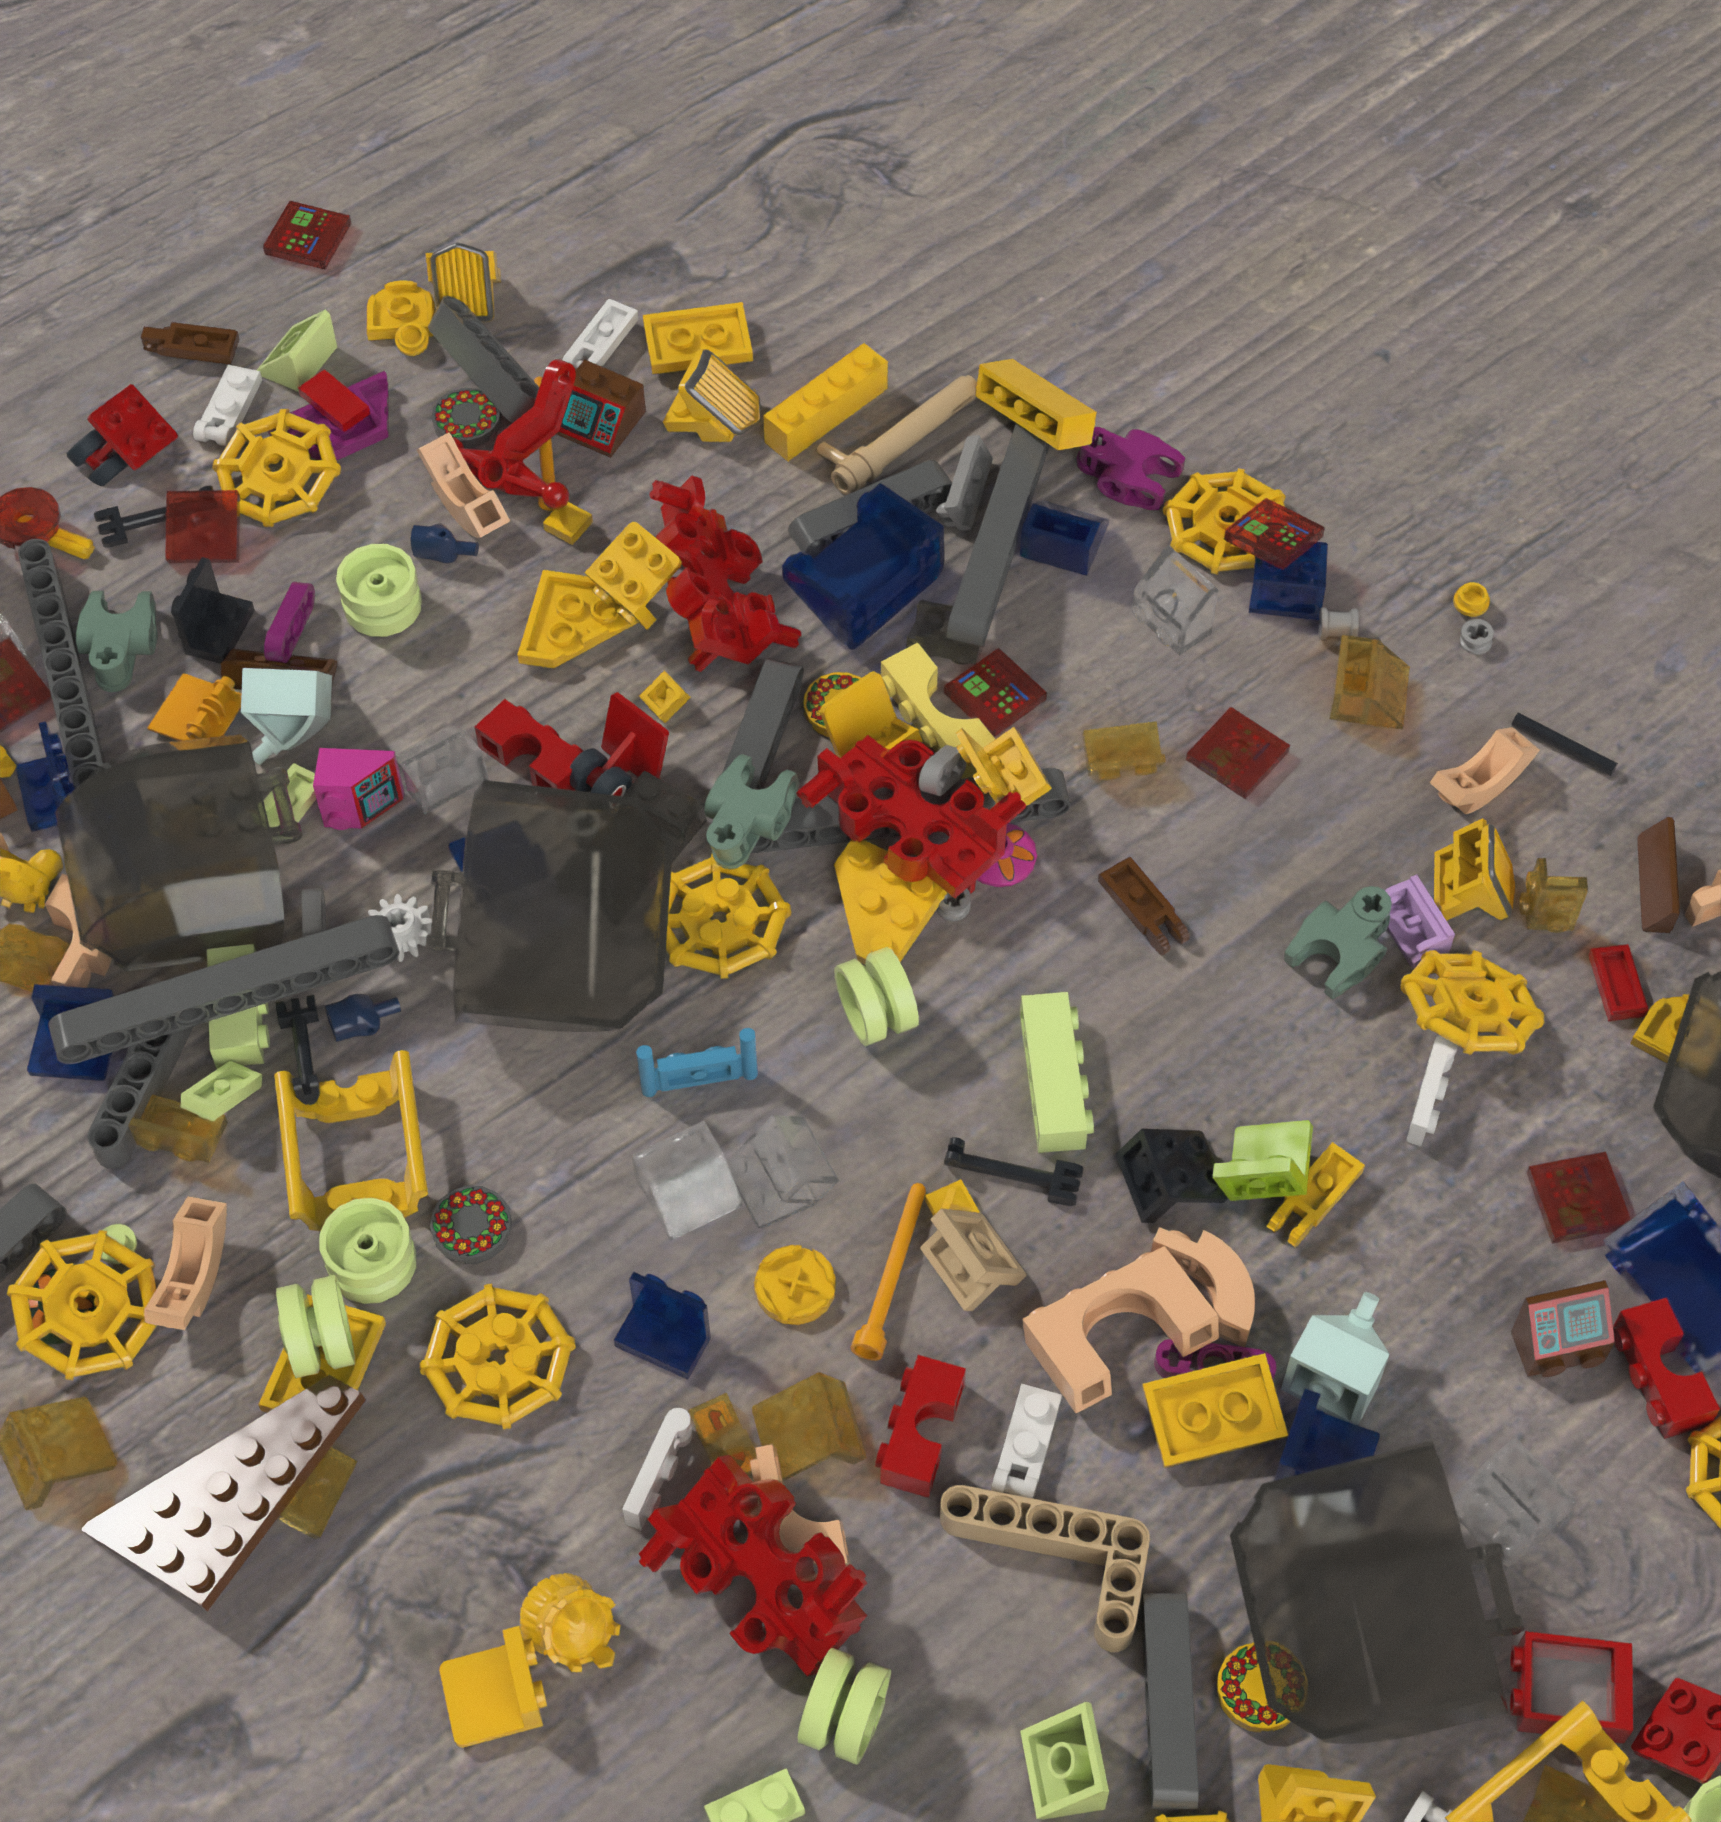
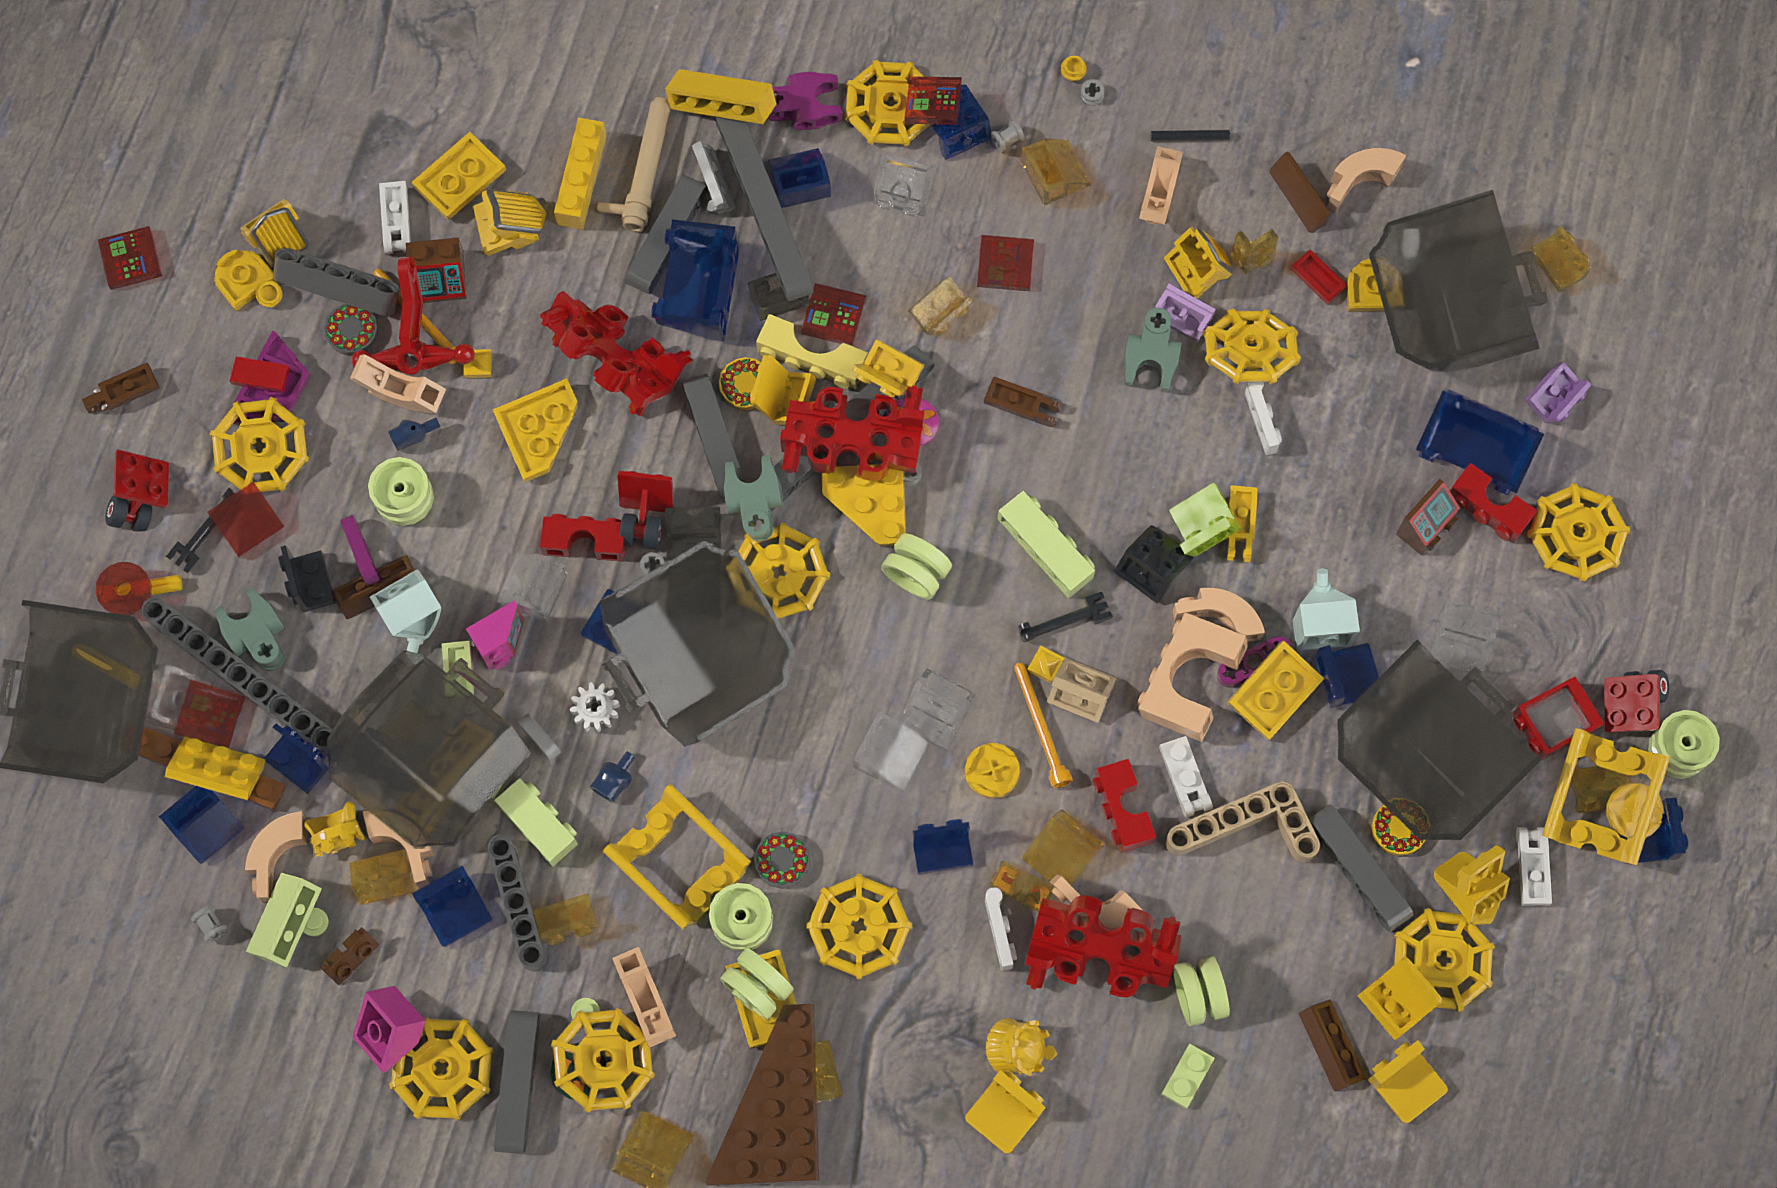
camera: 35 degrees left, 15 degrees up
(197, 709) = (348, 647): light orange hinge -> none
(221, 1090) = (574, 880): yellowish green plate -> none
(223, 989) = (530, 820): dark grey beam -> none
(228, 405) = (184, 419): white plate -> none
(301, 352) = (199, 351): yellowish green slope -> none
(306, 1084) = (625, 844): black hinge -> none
(633, 573) = (564, 380): yellow bracket -> none
(664, 696) = (635, 448): yellow tile -> none
(698, 1068) = (849, 668): dark azure plate -> none
(942, 771) = (852, 395): light grey beam -> none
(1065, 1764) = (1331, 939): yellowish green slope -> none
(1578, 1197) = (1381, 428): clear red tile -> none

